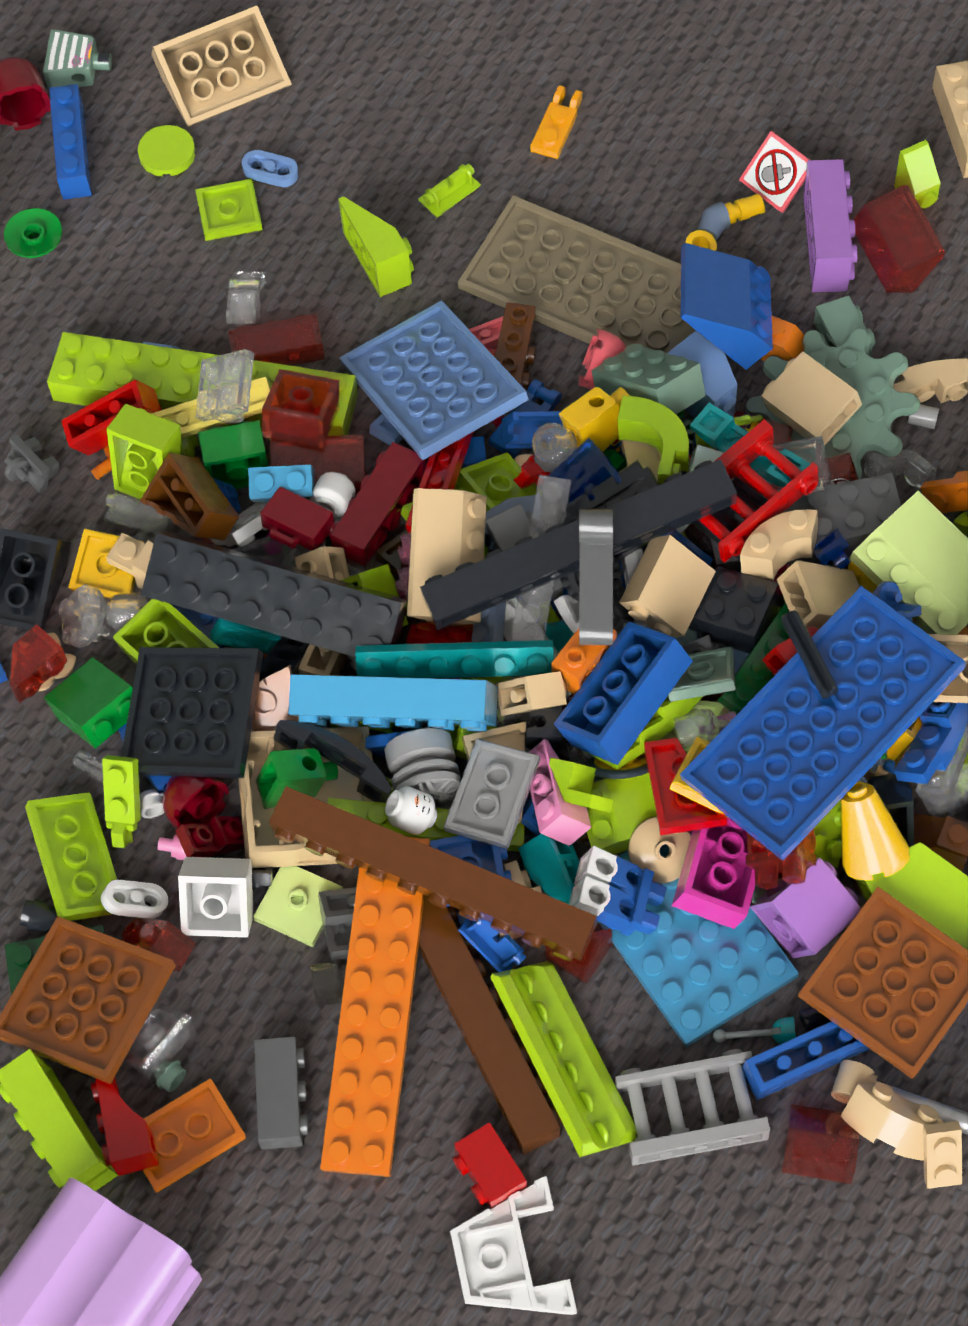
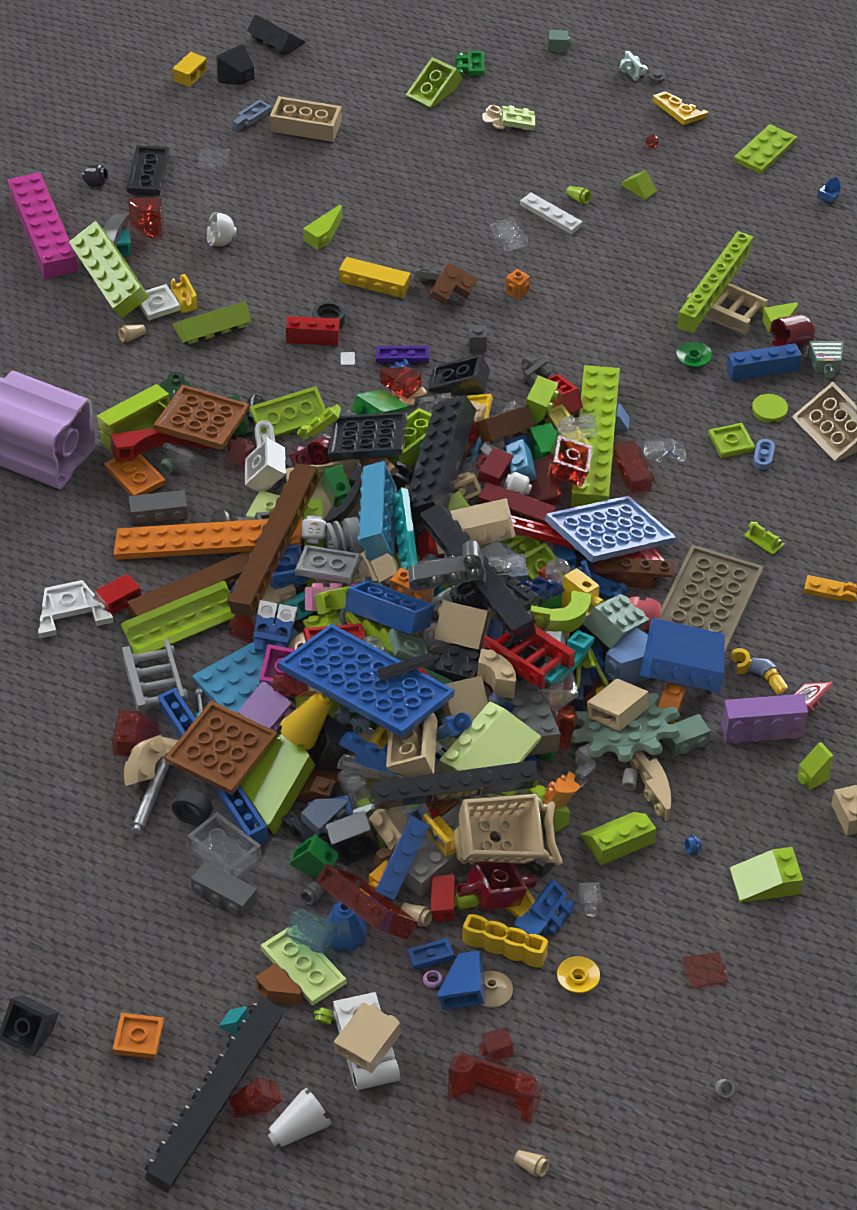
camera: 80 degrees right, 15 degrees down
(377, 247) = (704, 499): lime slope -> none
(898, 240) = (757, 753): clear red slope -> none
(942, 1154) = (124, 783): tan plate -> none

